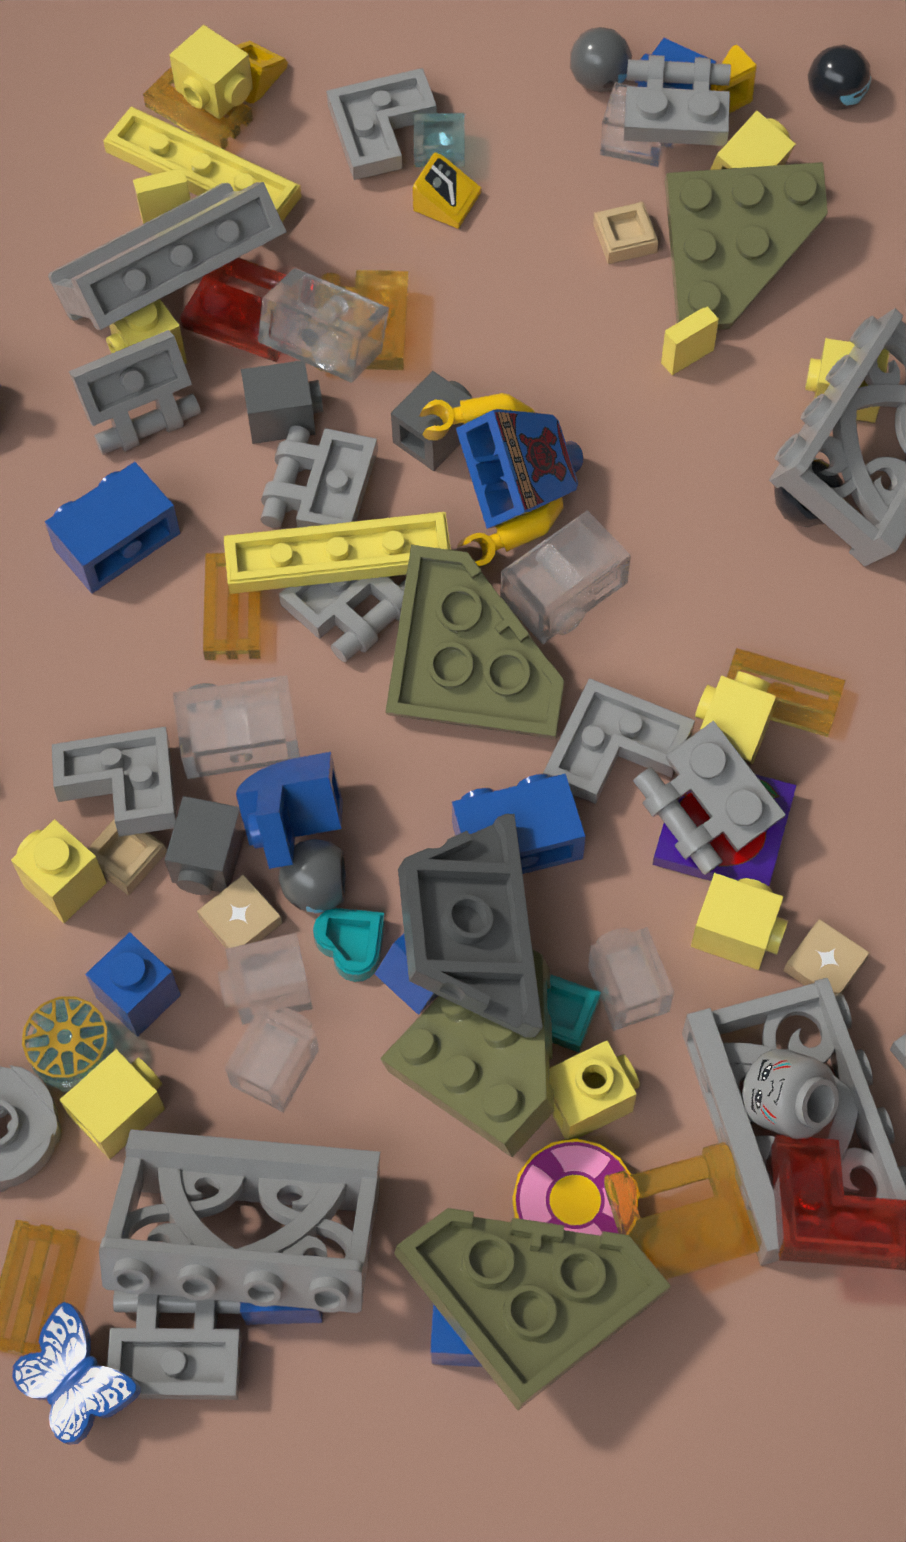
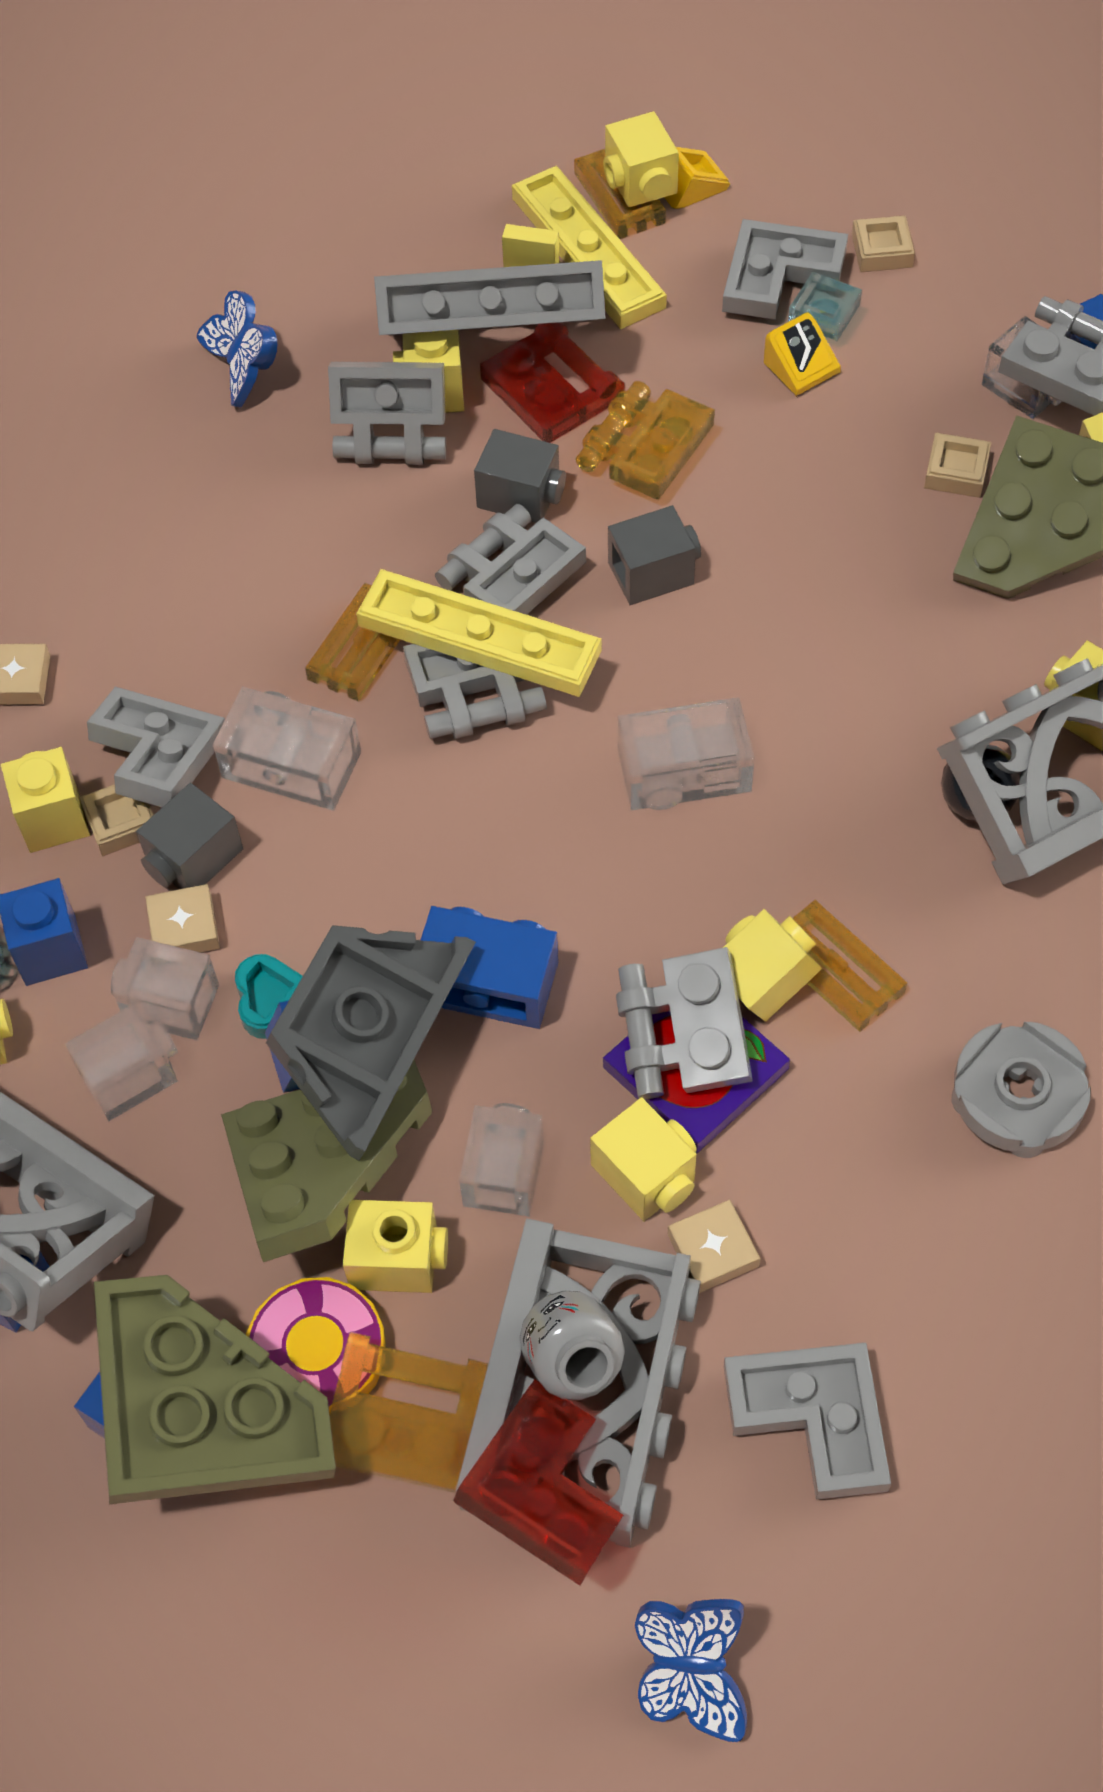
camera: 30 degrees right, 5 degrees down
(112, 526) = (294, 521): blue brick -> none
(290, 802) = (283, 836): blue brick -> none
(316, 878) = (269, 916): dark grey piece -> none
(322, 324) = (591, 418): clear brick -> none
(449, 63) = (883, 243): none -> tan tile
(467, 654) = (542, 779): olive plate -> none
(514, 464) = (694, 625): torso -> none
(570, 1011) = (425, 1162): teal tile -> none
(600, 59) = (1024, 287): dark grey piece -> none
(614, 725) = (629, 913): light grey plate -> none
(689, 340) = (952, 588): light yellow tile -> none

